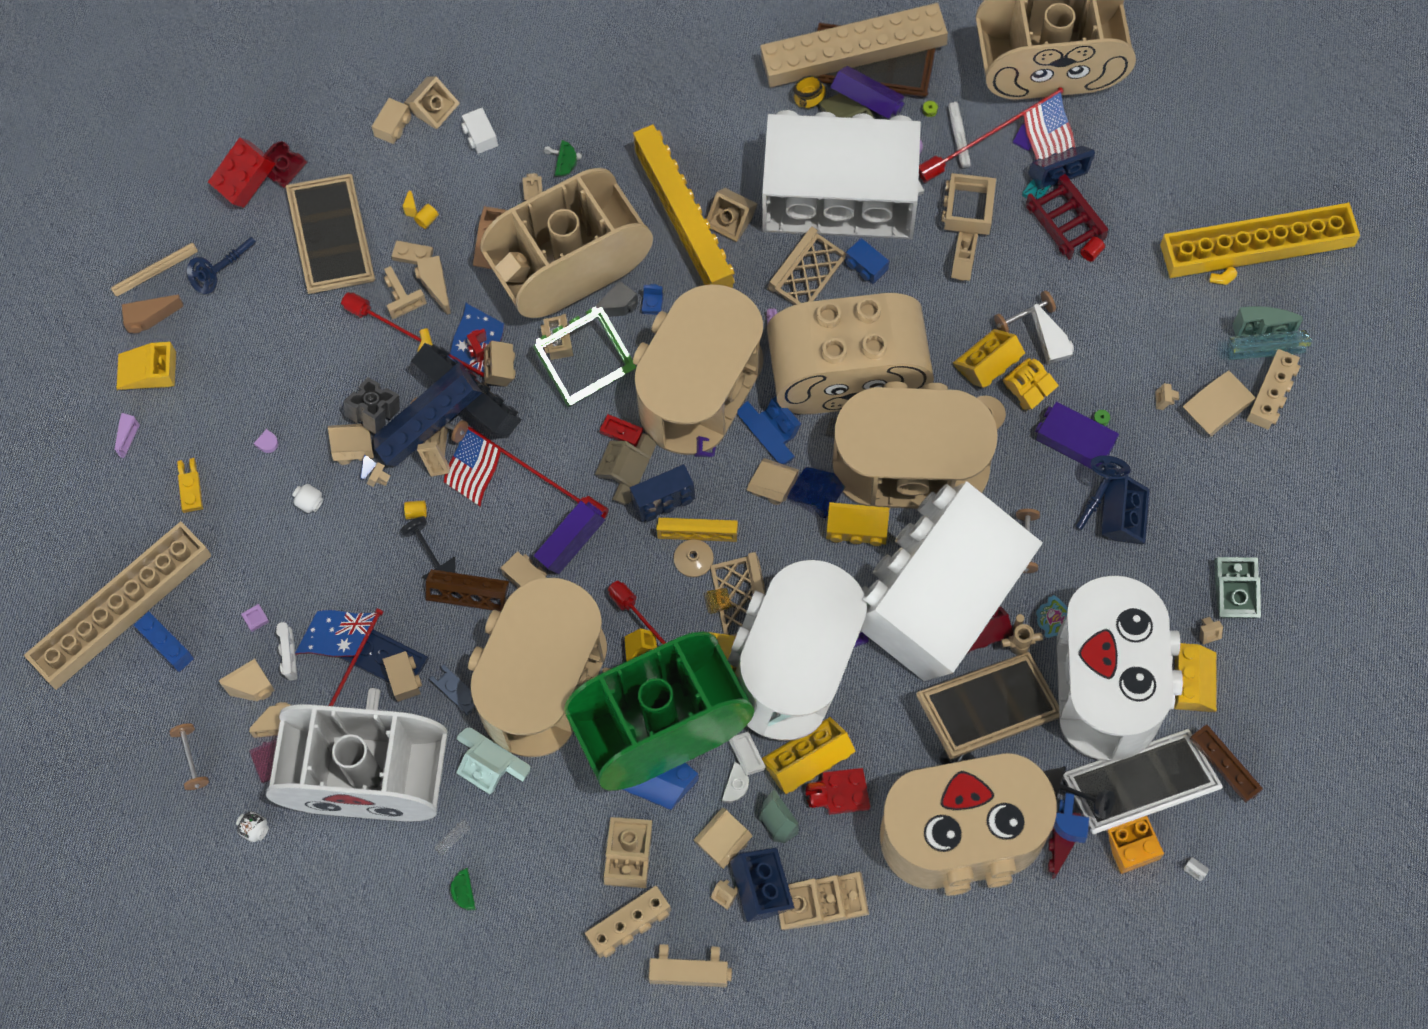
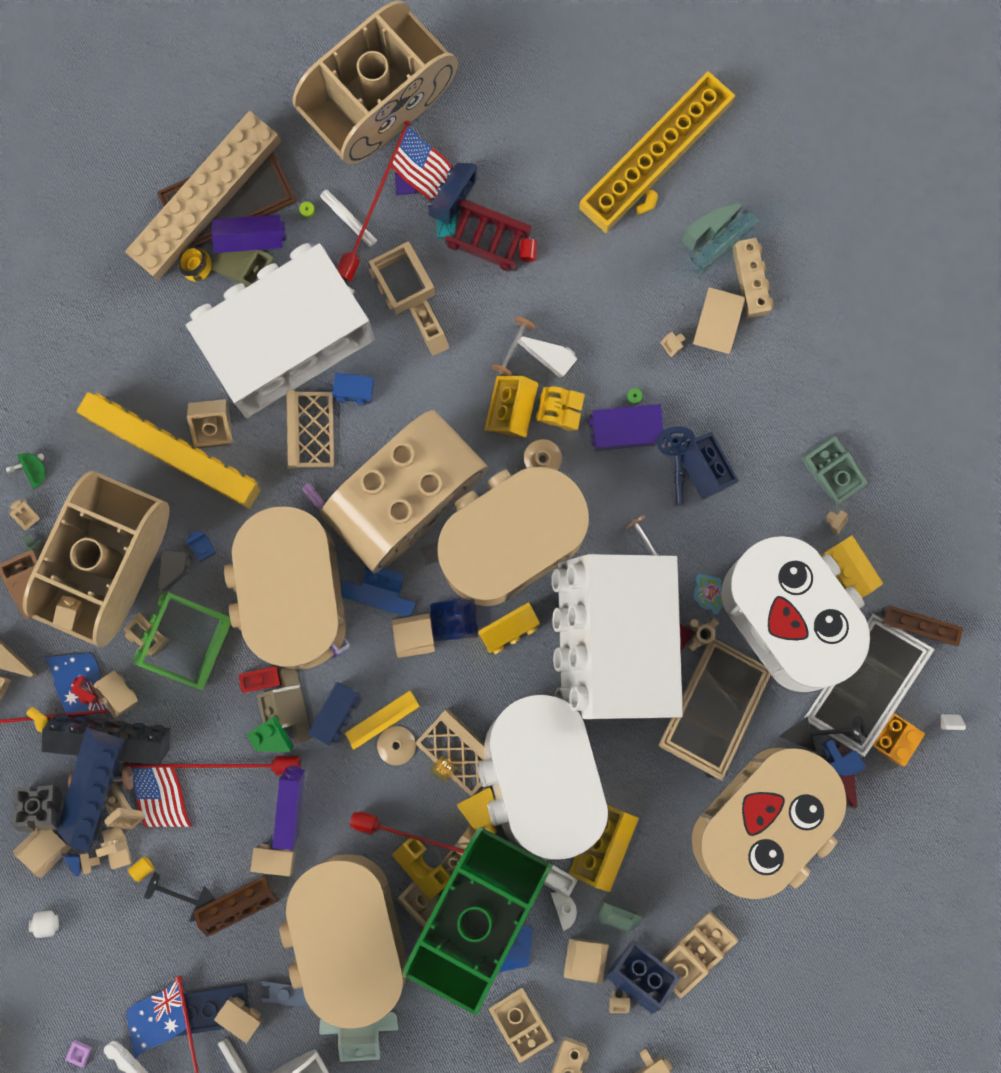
camera: 40 degrees left, 15 degrees up
(409, 478) = (115, 847): none -> tan bracket
(596, 476) = (270, 737): none -> green wing
(840, 792) = (648, 857): red plate -> none

